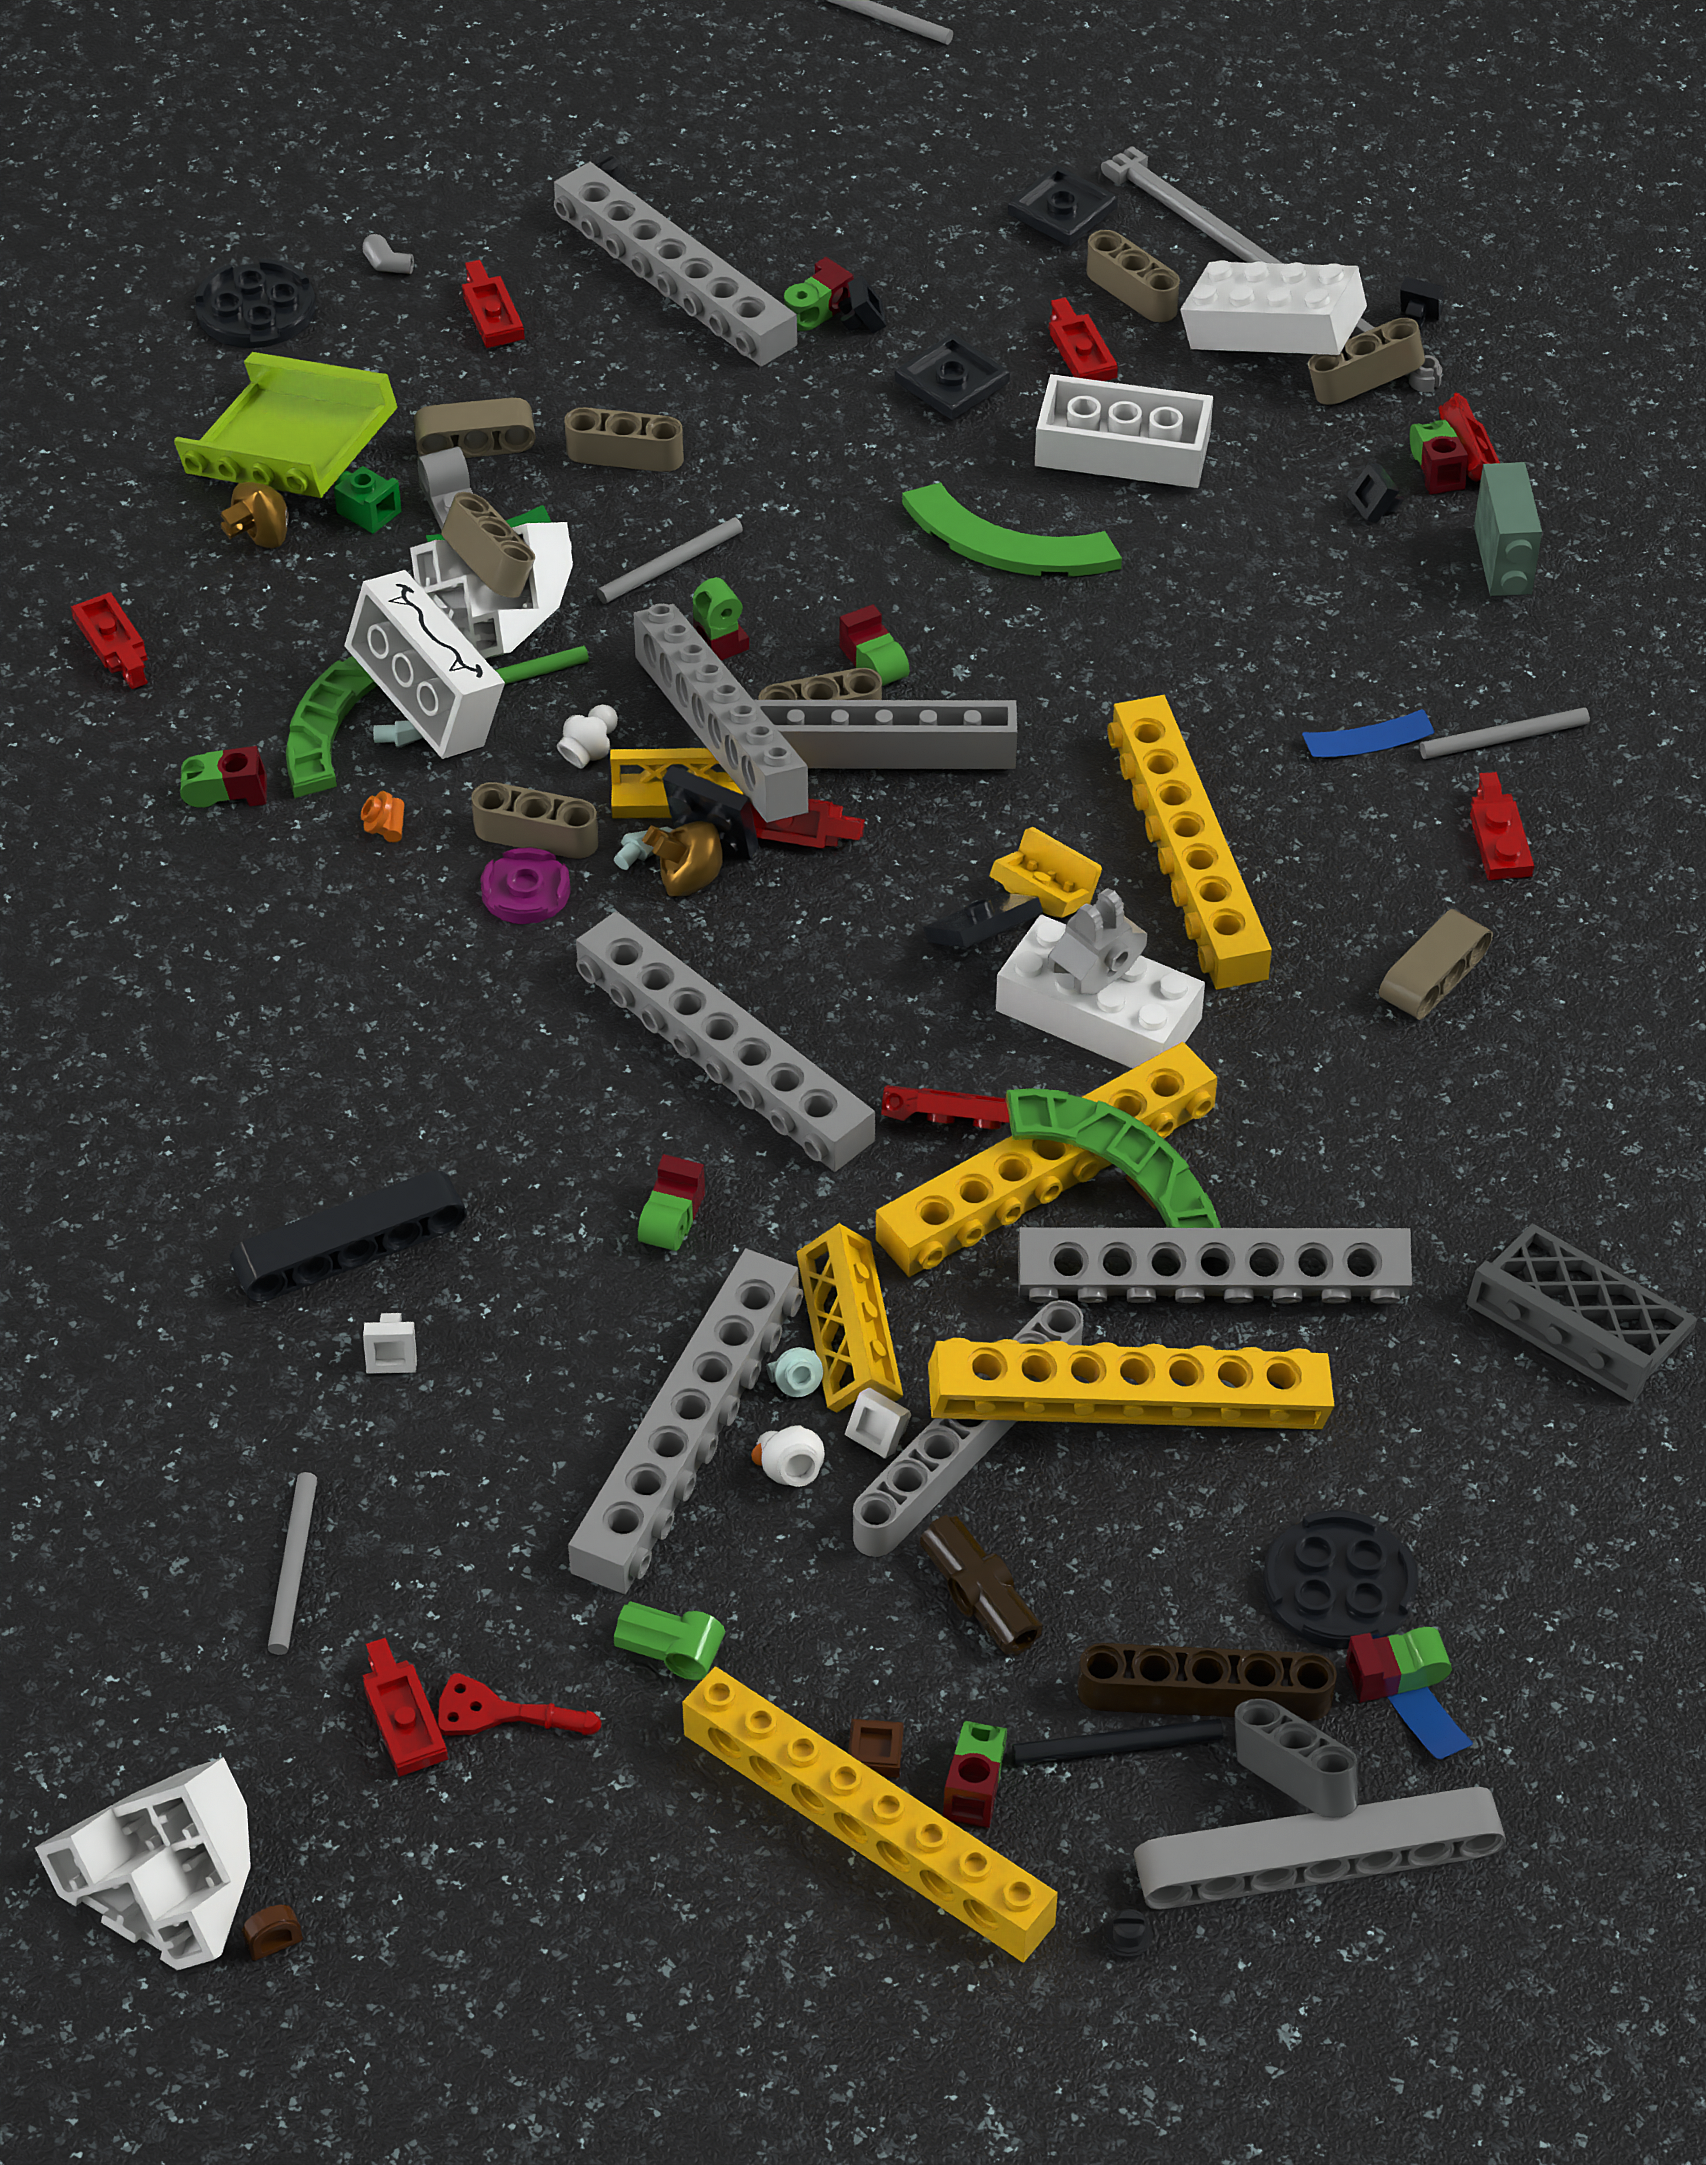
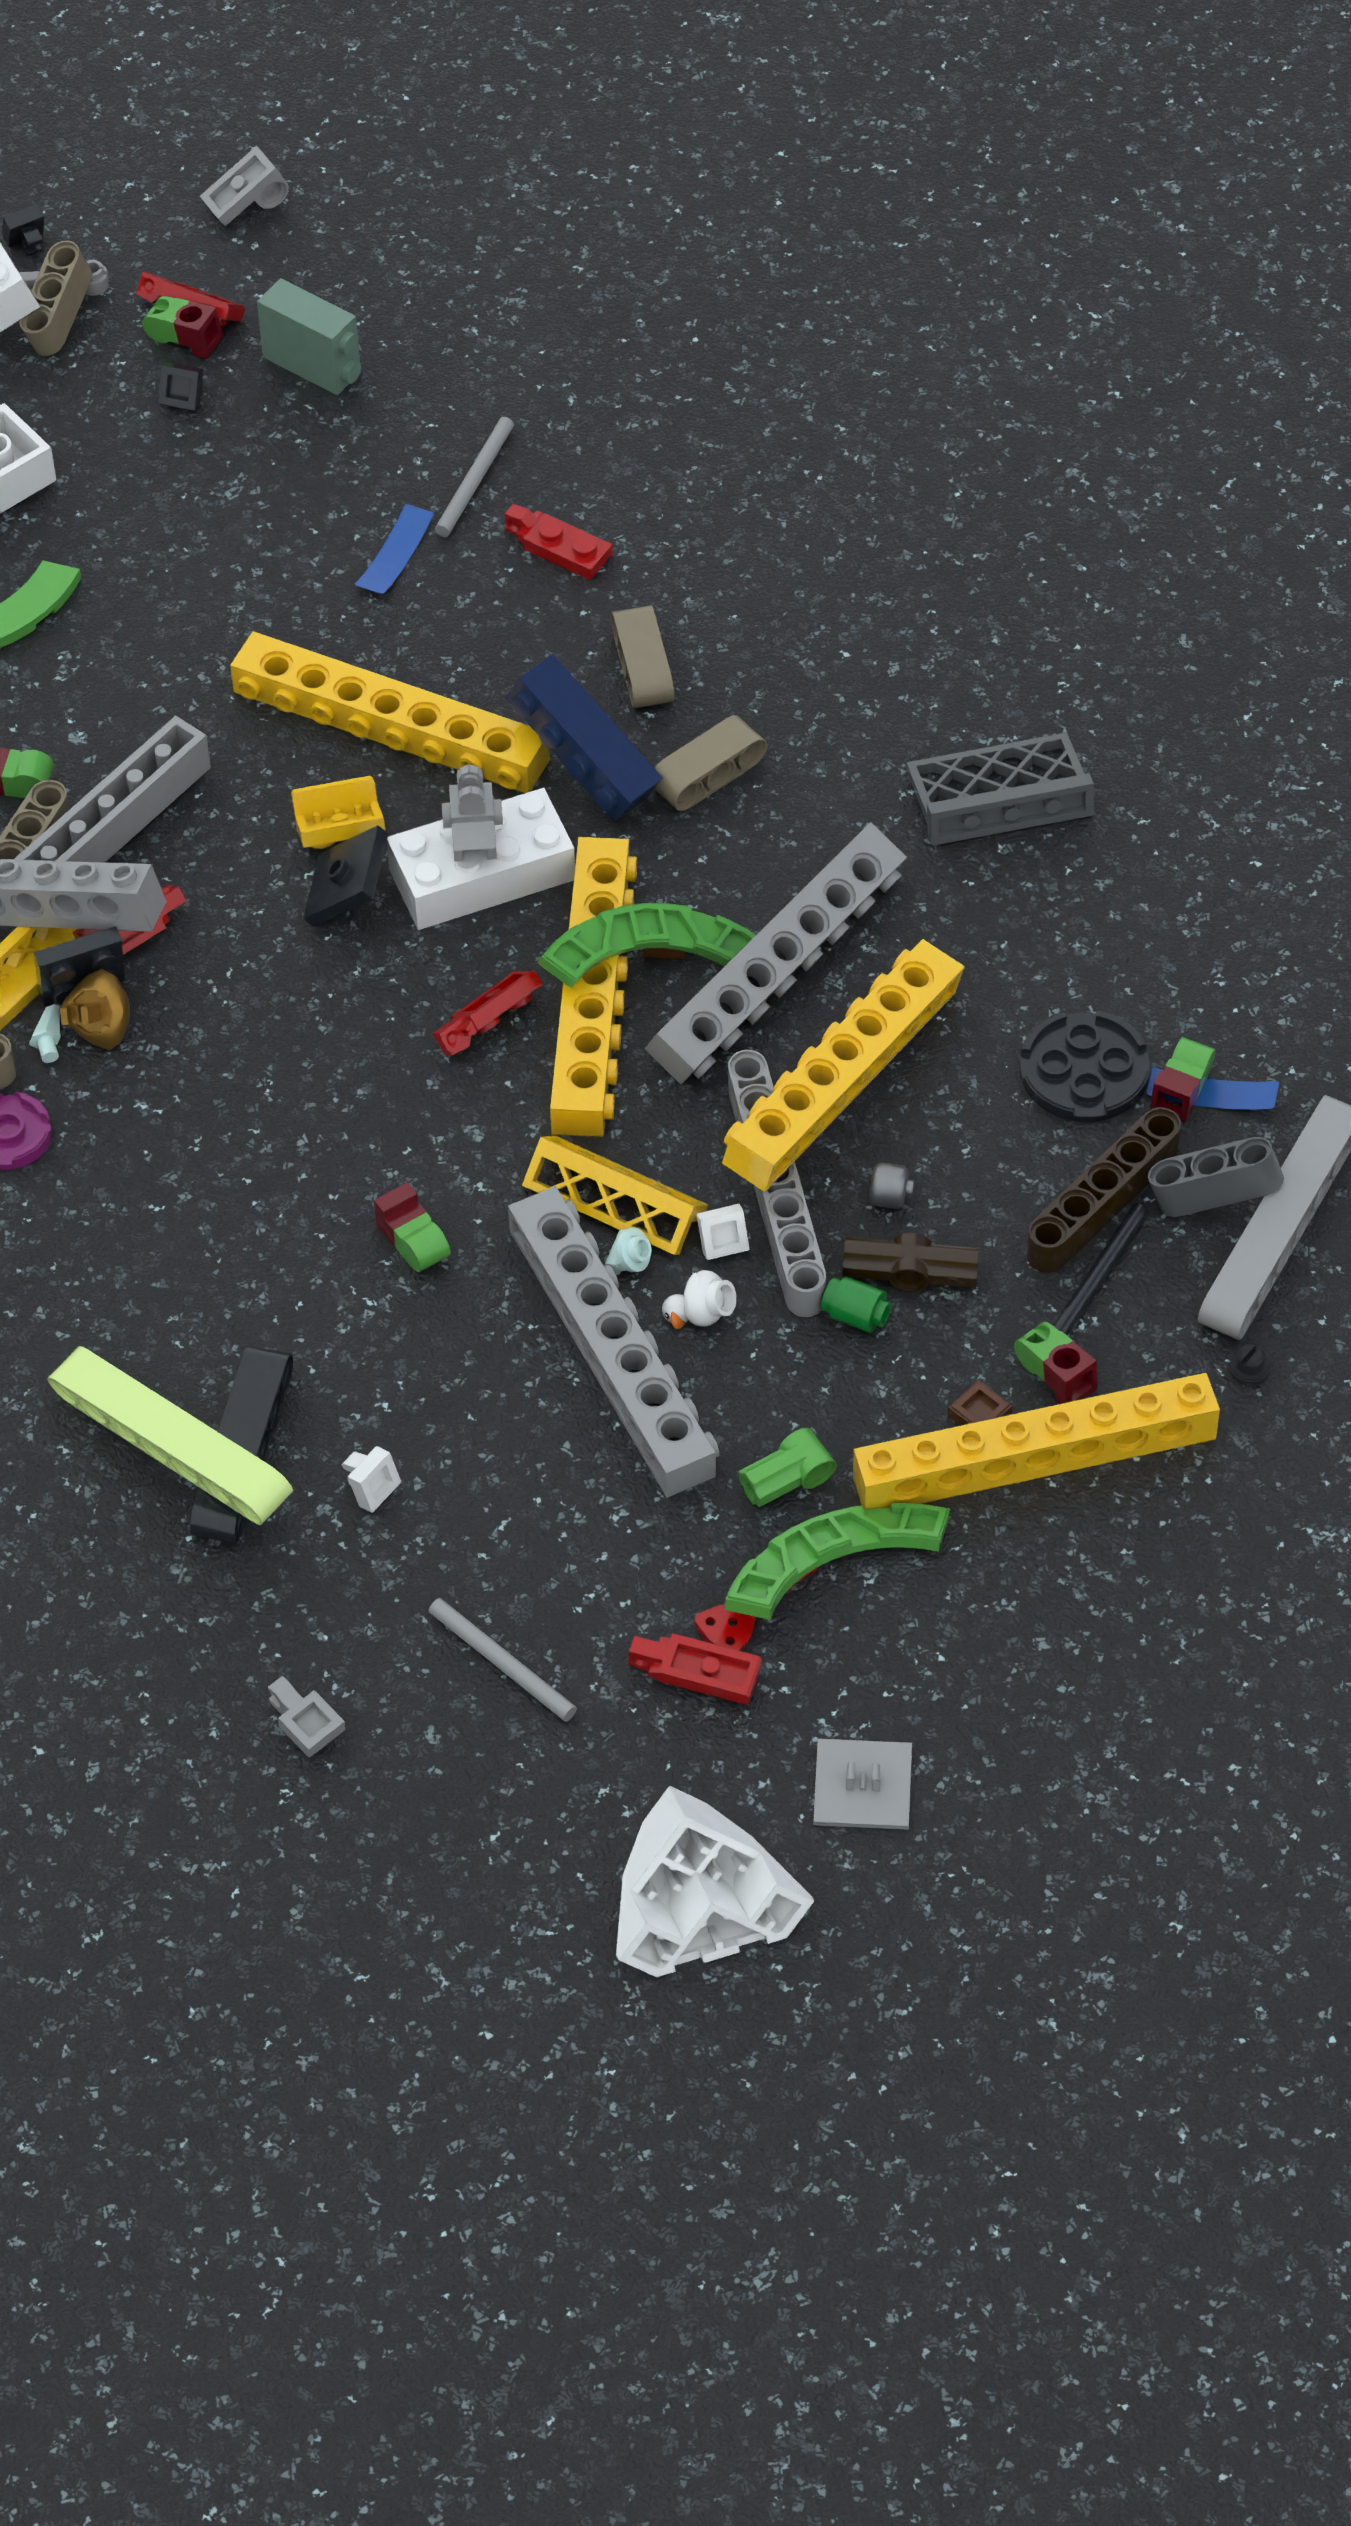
camera: 50 degrees left, 5 degrees up
(112, 1463) = (305, 1720): none -> light grey plate
(271, 1931) = (814, 1858): reddish brown tile -> none
(295, 1178) = (170, 1435): none -> yellowish green beam
(391, 1923) = (863, 1784): none -> light grey piece
(614, 1714) = (828, 1537): none -> bright green tile
(726, 1041) = (290, 1101): light grey brick -> none
(894, 1572) = (856, 1304): none -> green brick
(1048, 1513) = (890, 1185): none -> flat silver piece
(1282, 972) = (583, 737): none -> dark blue brick
(1372, 1083) = (709, 762): none -> dark tan beam
(1633, 393) = (247, 181): none -> light grey plate

